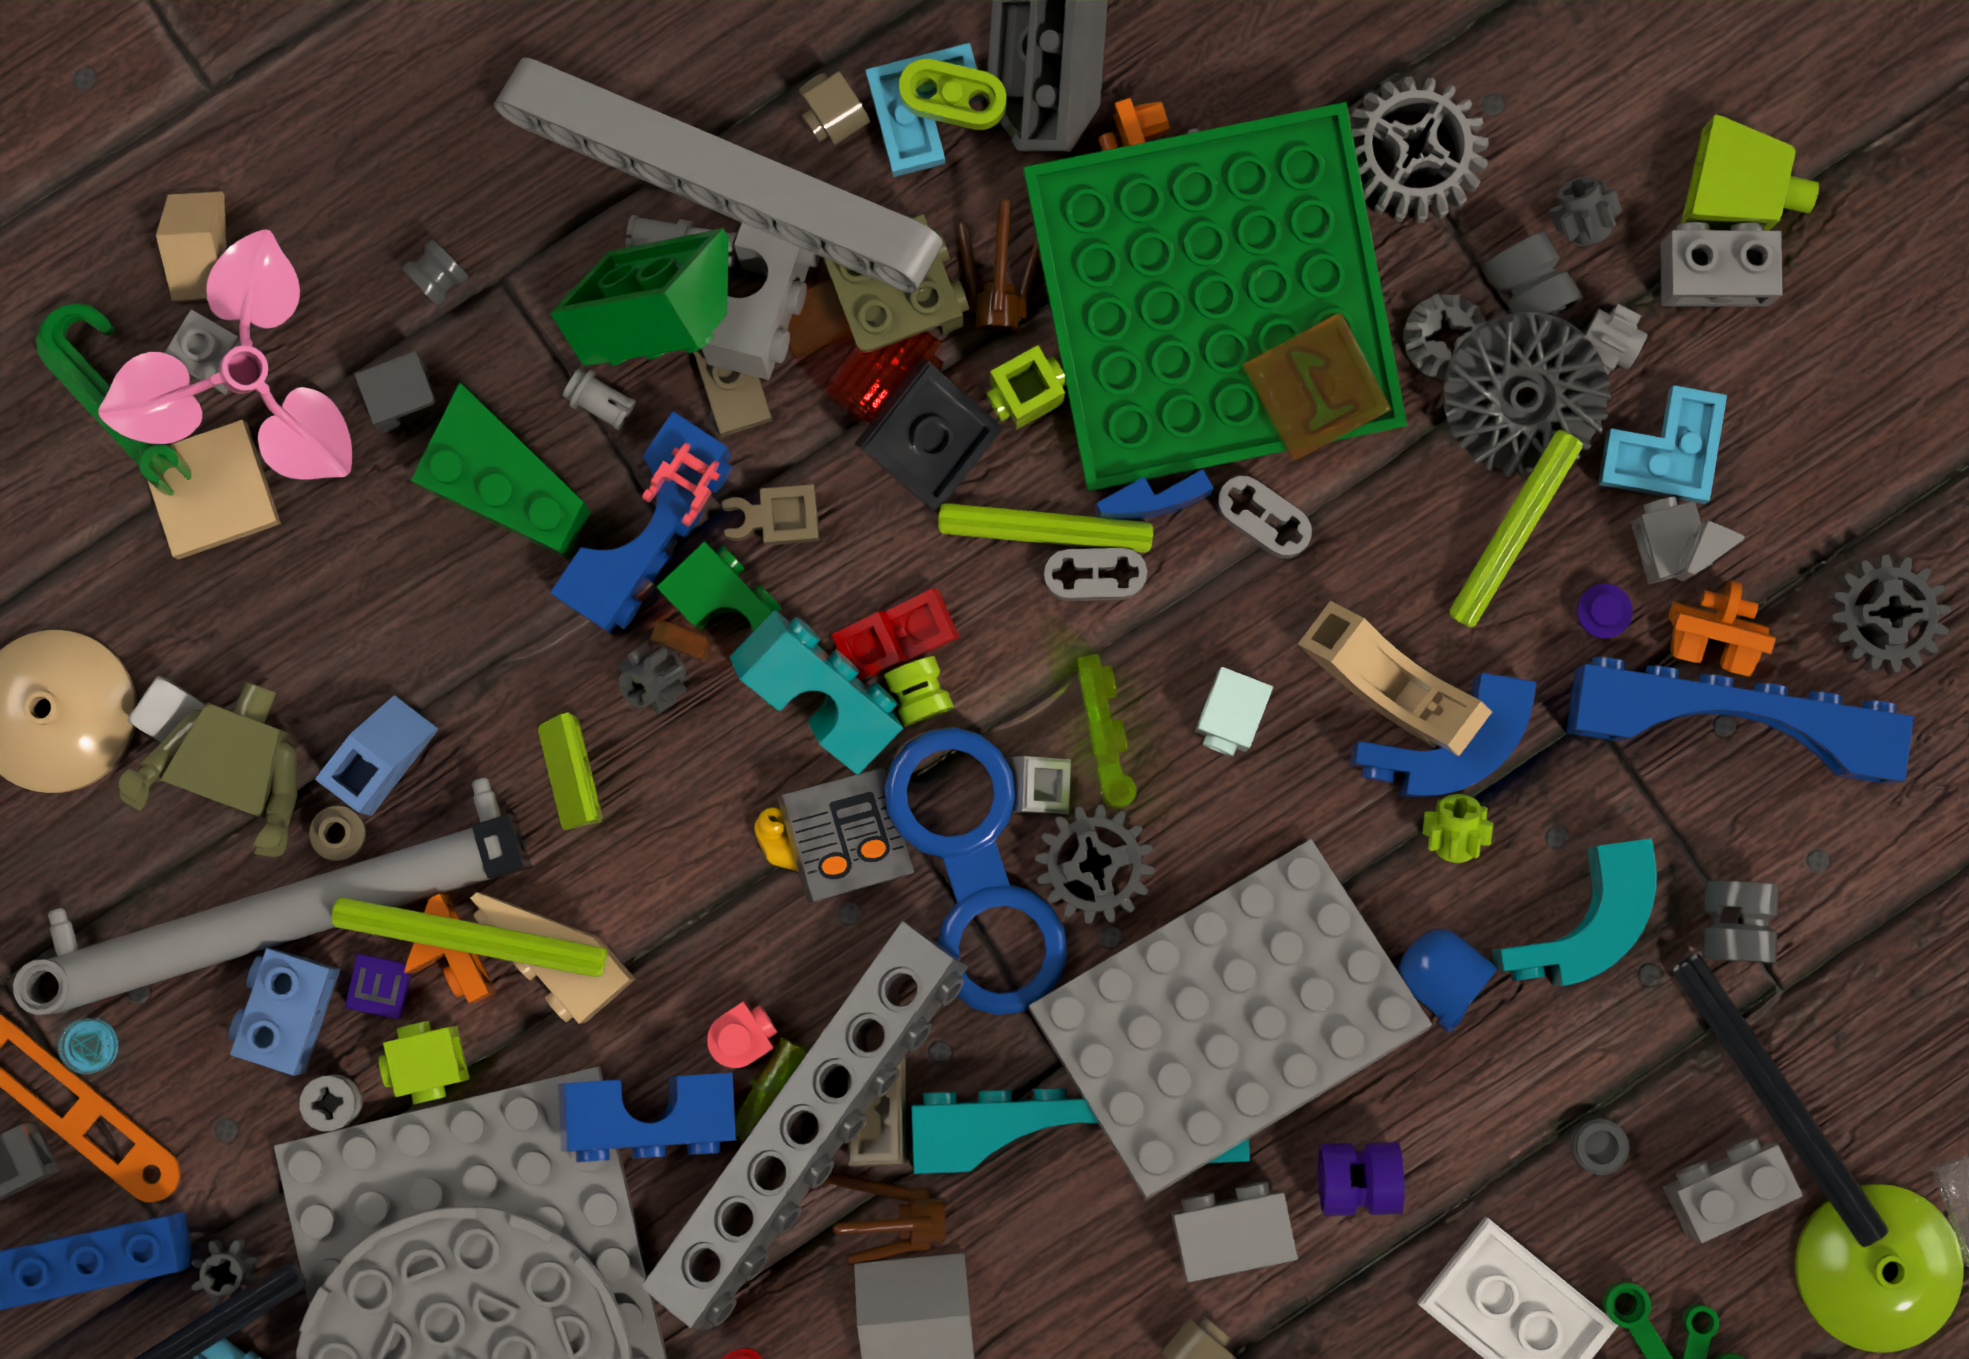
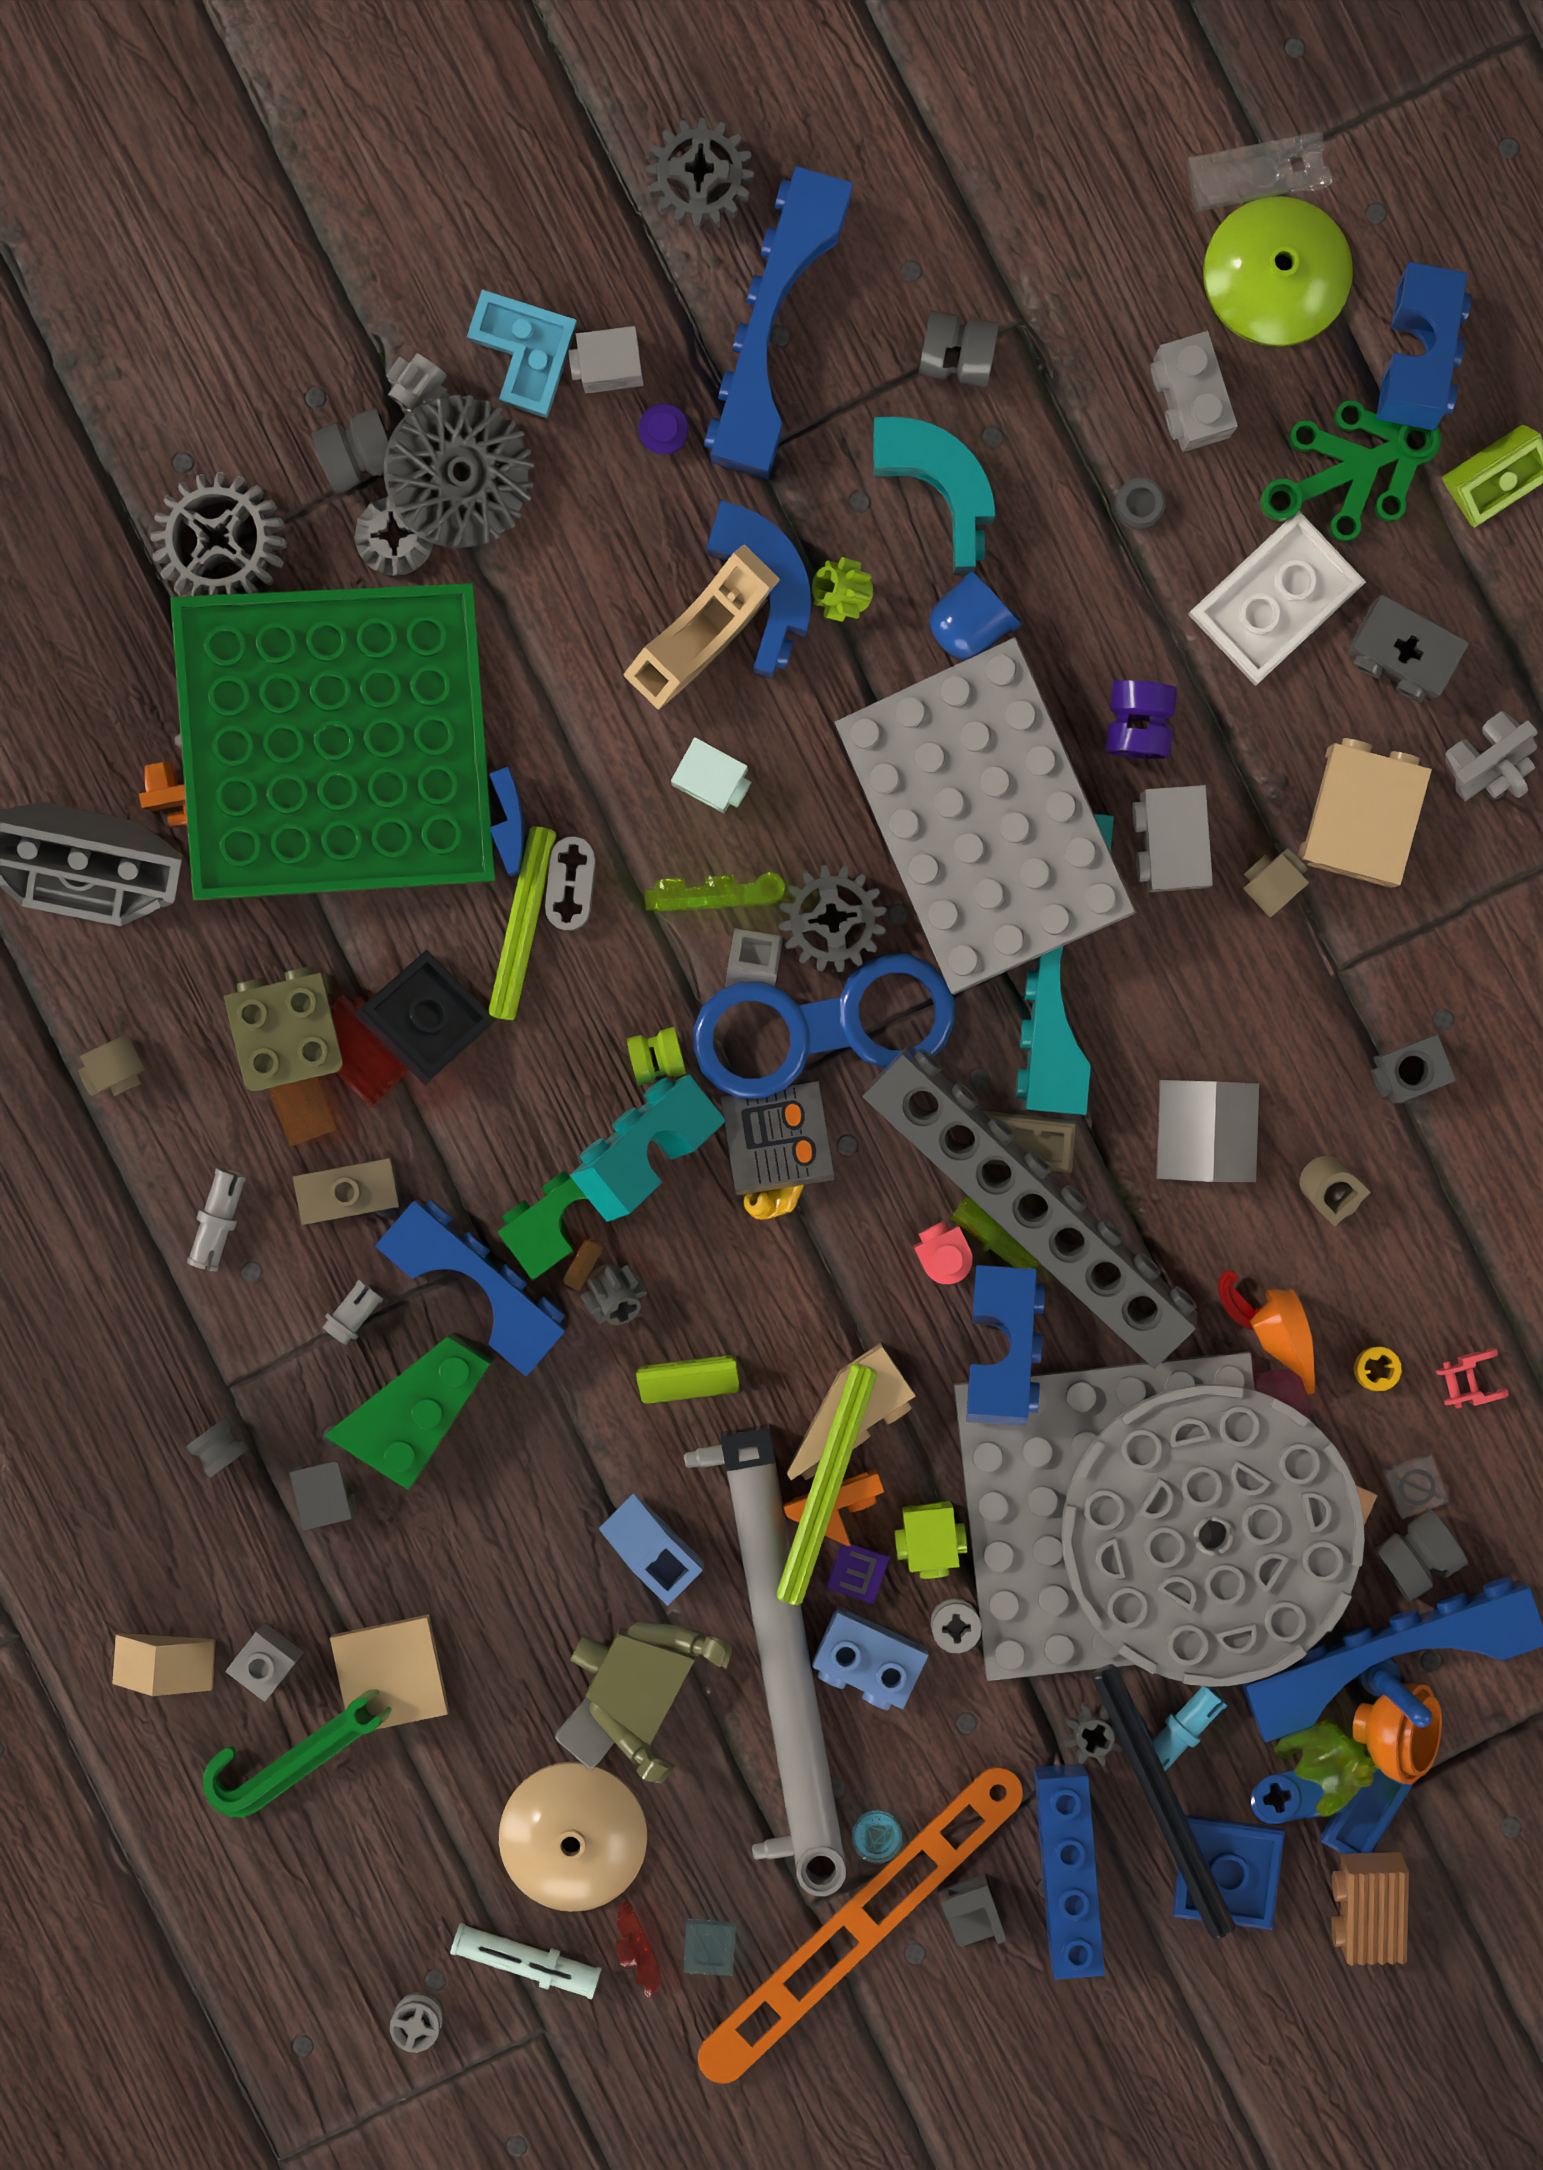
camera: 80 degrees left, 5 degrees up
(153, 392) = (301, 1712): bright pink plant -> none
(354, 833) = (720, 1578): dark tan plate -> none
(648, 300) = (270, 1255): green slope -> none
(668, 473) = (430, 1256): coral piece -> none
(719, 175) = (162, 1178): light grey beam -> none
(756, 326) = (310, 1165): light grey arch -> none
(784, 515) = (480, 1157): dark tan plate -> none
(897, 634) = (602, 1069): red slope -> none
(910, 139) = (108, 996): medium azure plate -> none
(919, 1220) = (1128, 1117): reddish brown plant -> none
(955, 89) = (112, 954): lime plate -> none
(997, 305) = (312, 939): reddish brown plant -> none
(1026, 387) = (393, 923): lime brick -> none
(1271, 506) = (529, 716): light grey beam -> none
(1316, 386) = (427, 660): clear orange tile -> none
(1515, 528) = (579, 498): lime axle -> none
(1585, 210) = (295, 392): dark grey gear -> none
(1704, 546) = (620, 331): light grey slope -> none
(1721, 266) = (362, 276): light grey brick -> none
(1743, 638) = (703, 308): orange hips -> none
(1744, 178) = (286, 244): lime torso -> none
(1780, 1101) = (1120, 337): black axle -> none

